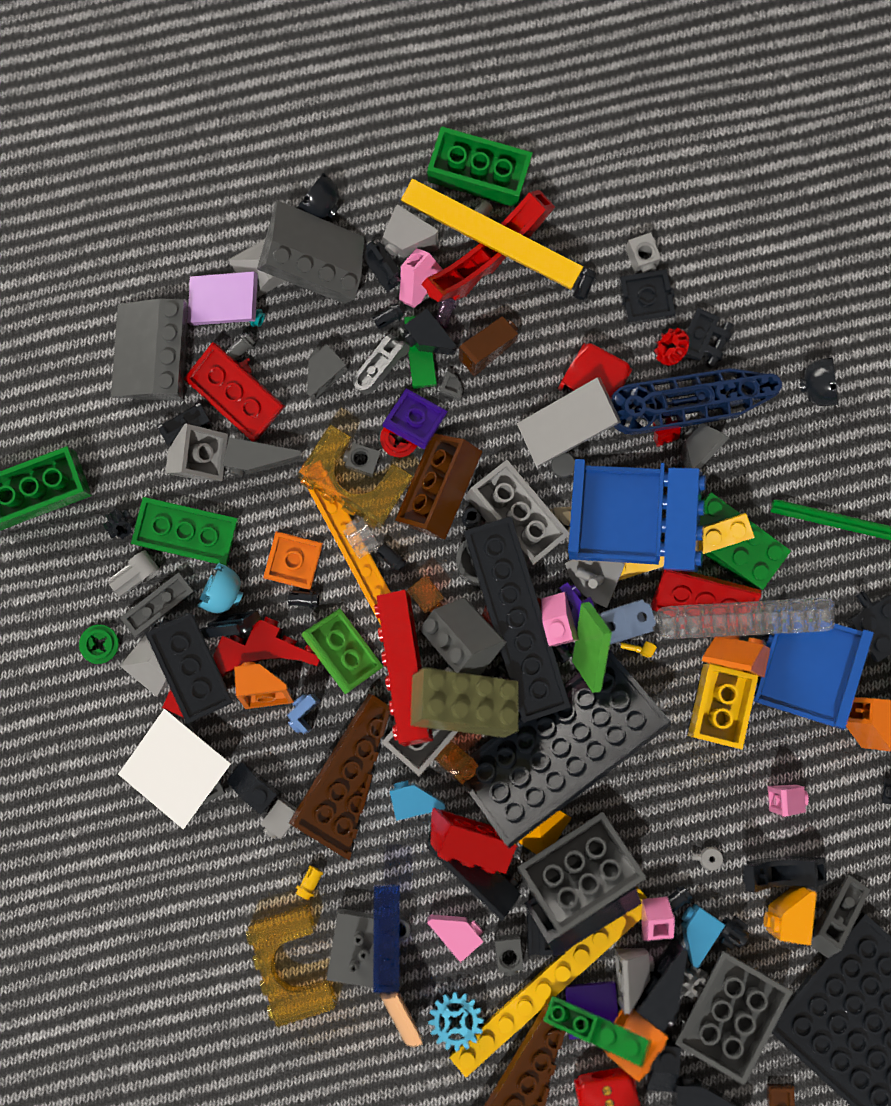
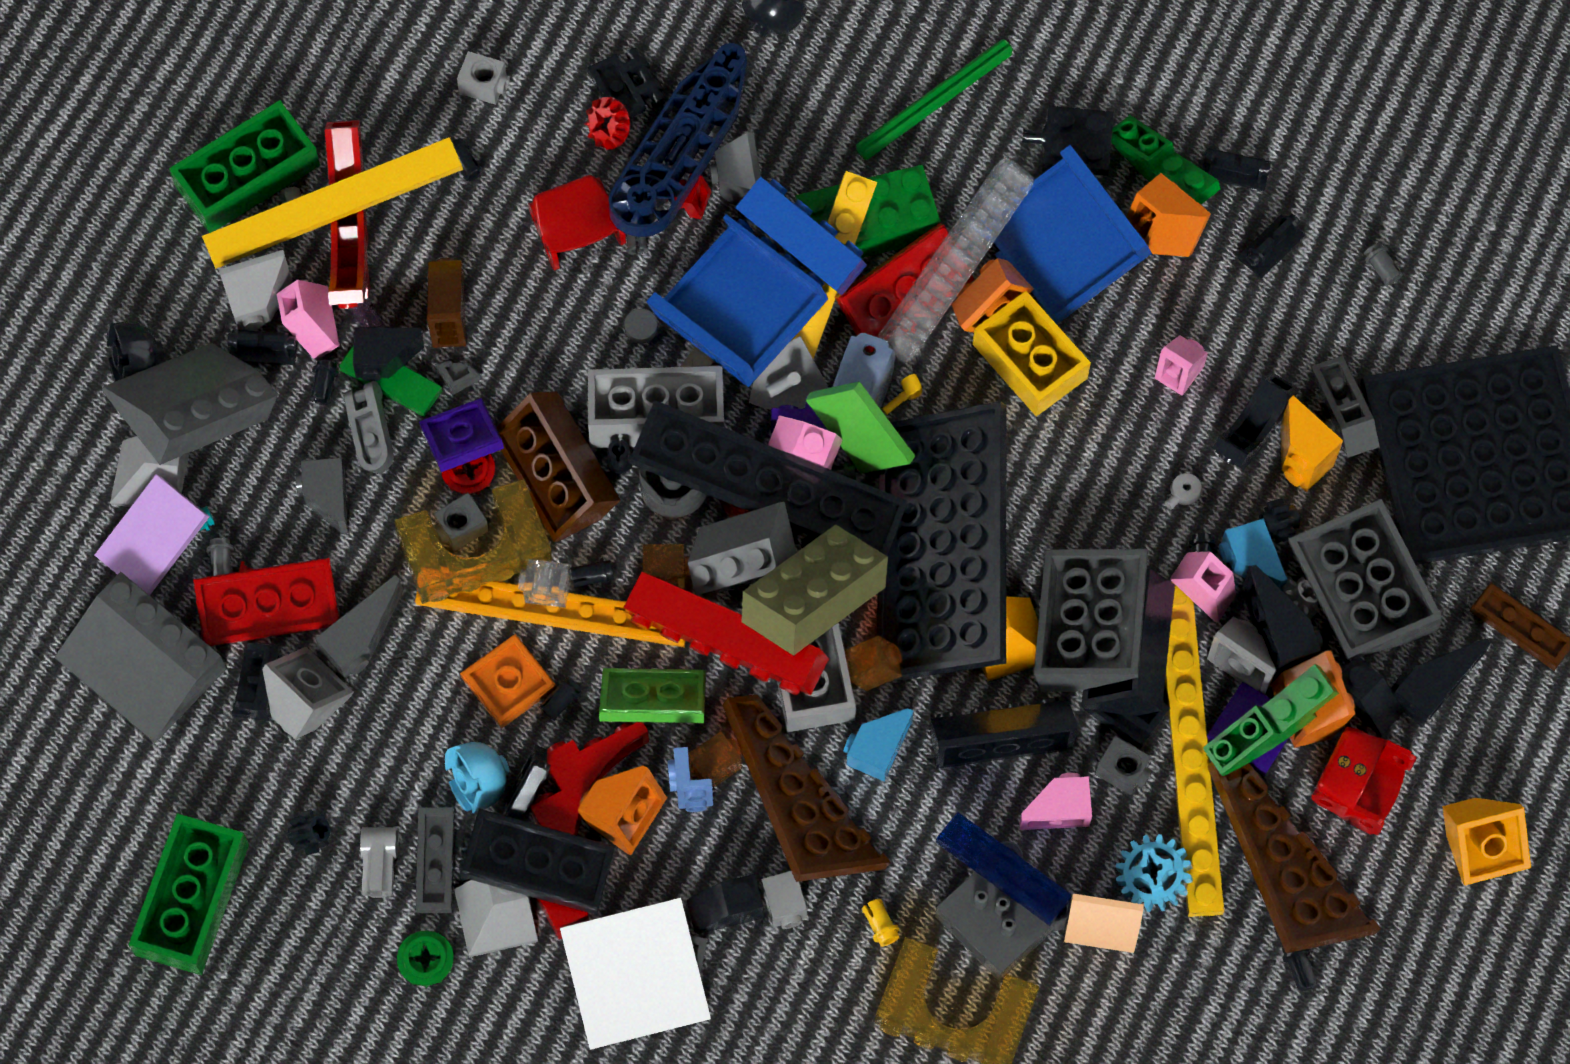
camera: 50 degrees left, 15 degrees down
(184, 531) = (376, 770): green plate -> none
(332, 715) = (716, 759): none -> clear orange brick
(469, 842) = (969, 701): red slope -> none
(568, 422) = (601, 279): light grey tile -> none
(647, 297) = (532, 108): black plate -> none

